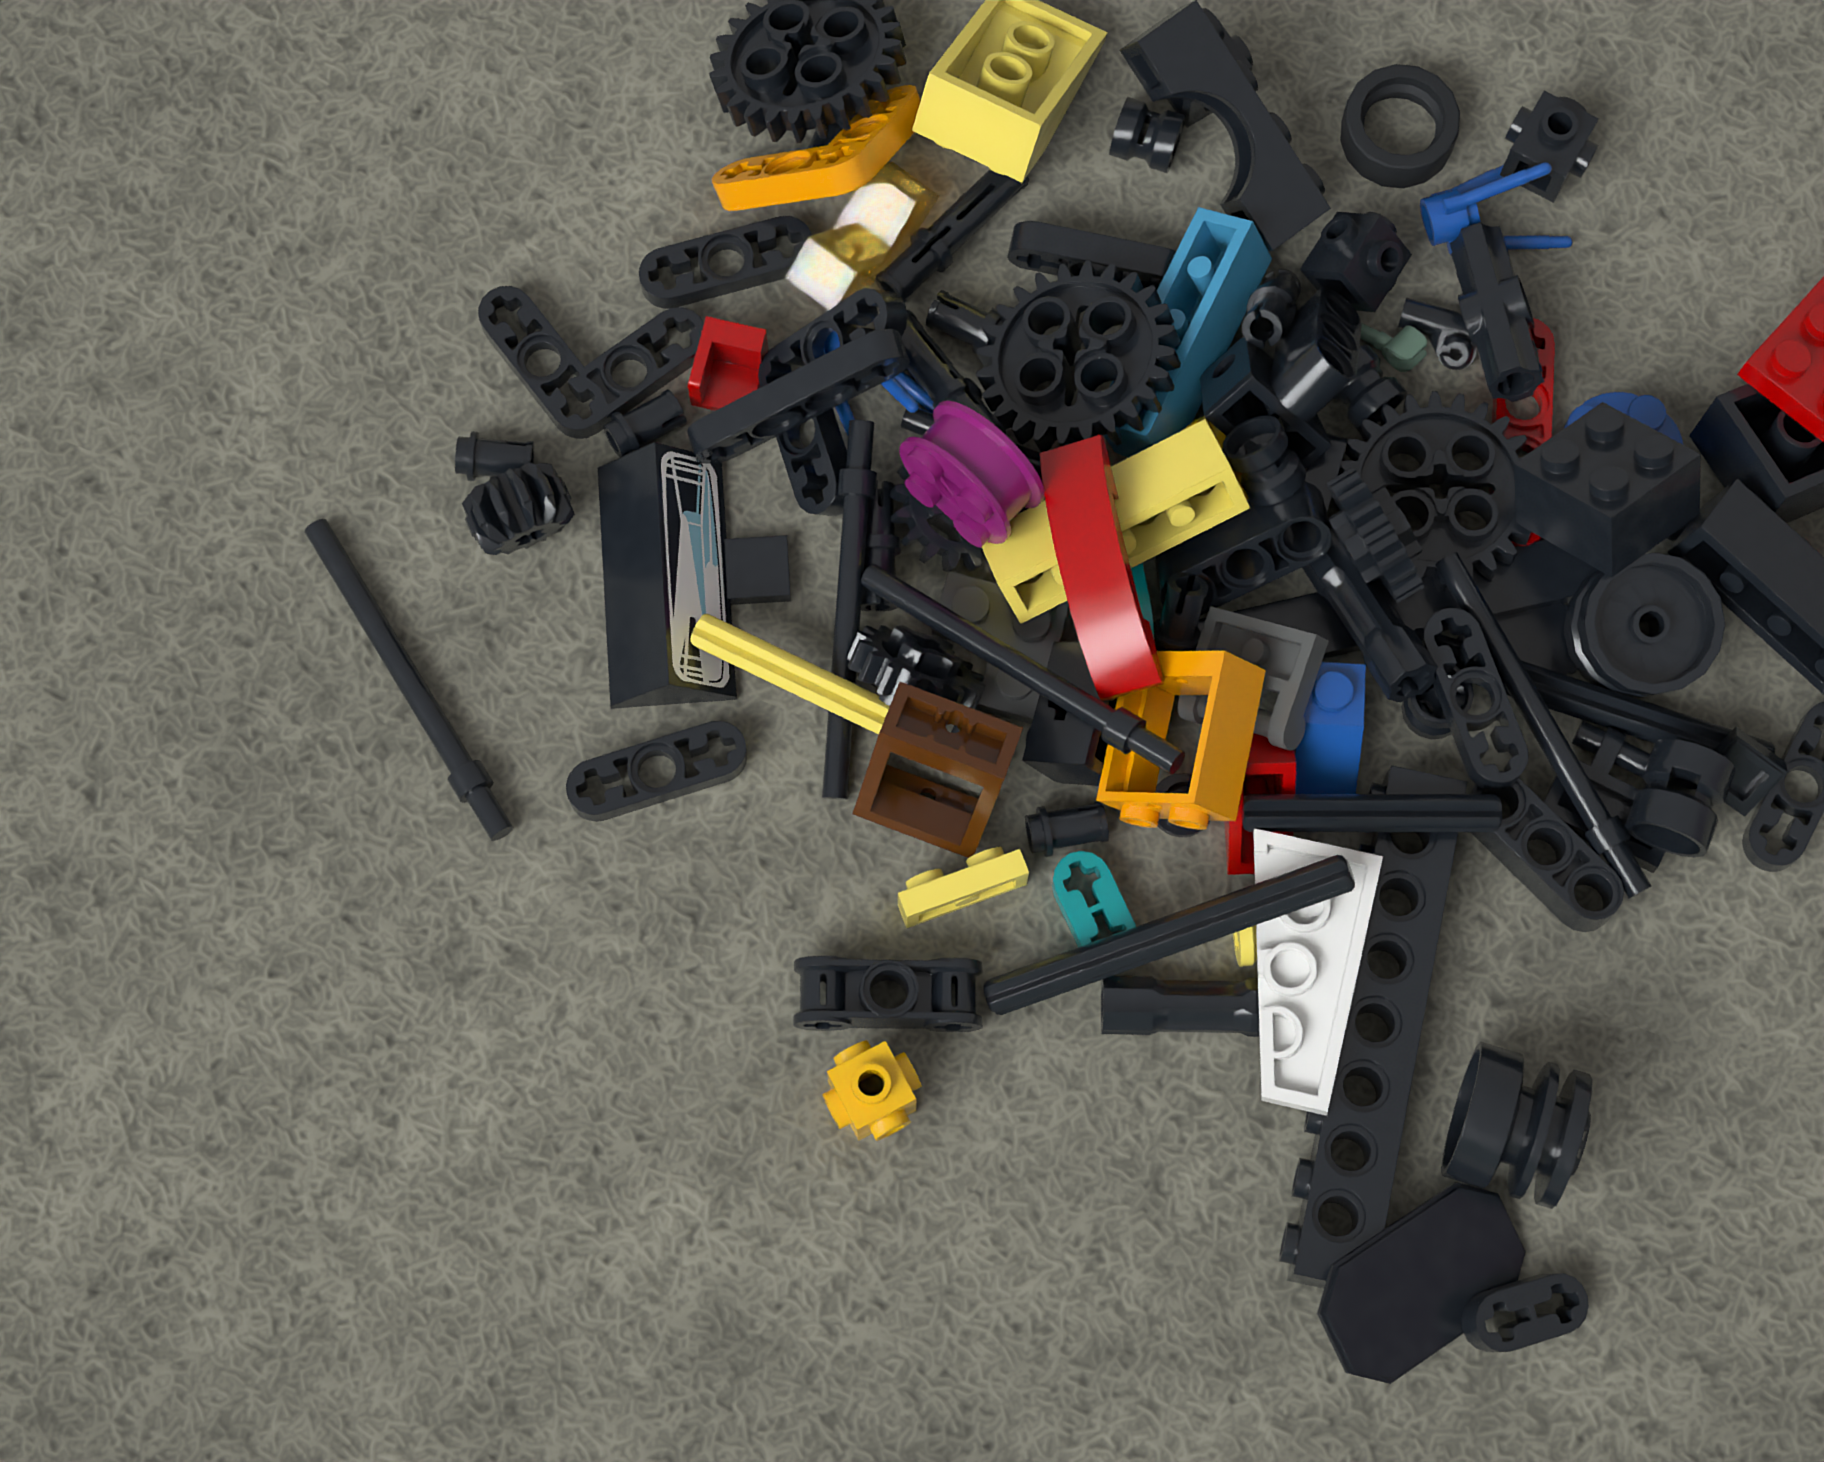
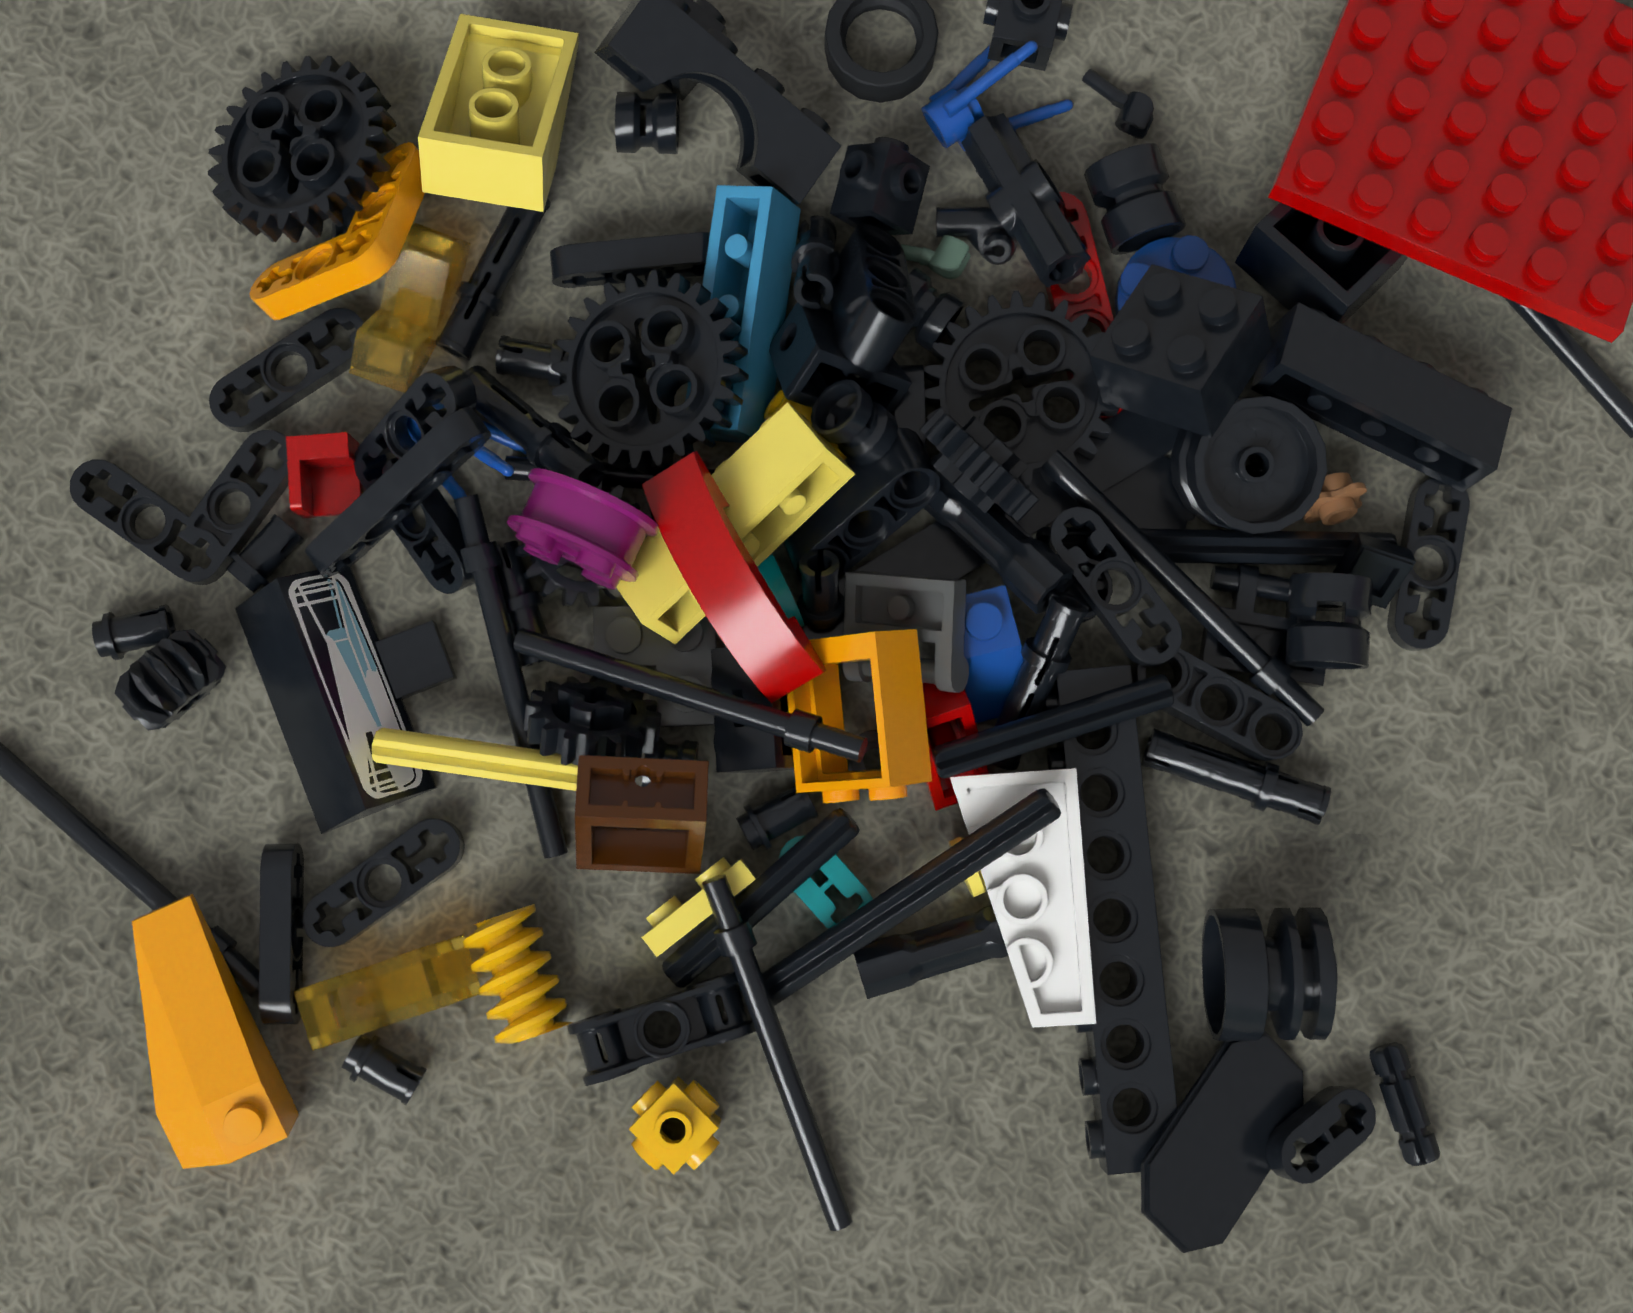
camera: 20 degrees left, 10 degrees up
(429, 875) = (205, 1053): none -> light orange wedge
(542, 778) = (278, 941): none -> black beam
(597, 948) = (383, 1068): none -> black pin
(634, 876) = (387, 992): none -> clear yellow brick
(757, 898) = (516, 976): none -> yellow piece
(991, 923) = (737, 941): none -> black bar
(1027, 896) = (765, 893): none -> black axle
(1412, 709) = (1044, 659): none -> black pin
(1552, 938) = (1254, 782): none -> black pin
(1604, 338) = (1133, 195): none -> black wheel
(1621, 1314) = (1404, 1104): none -> black axle
(1633, 263) = (1135, 107): none -> black hand
(1722, 692) = (1337, 500): none -> medium nougat plate

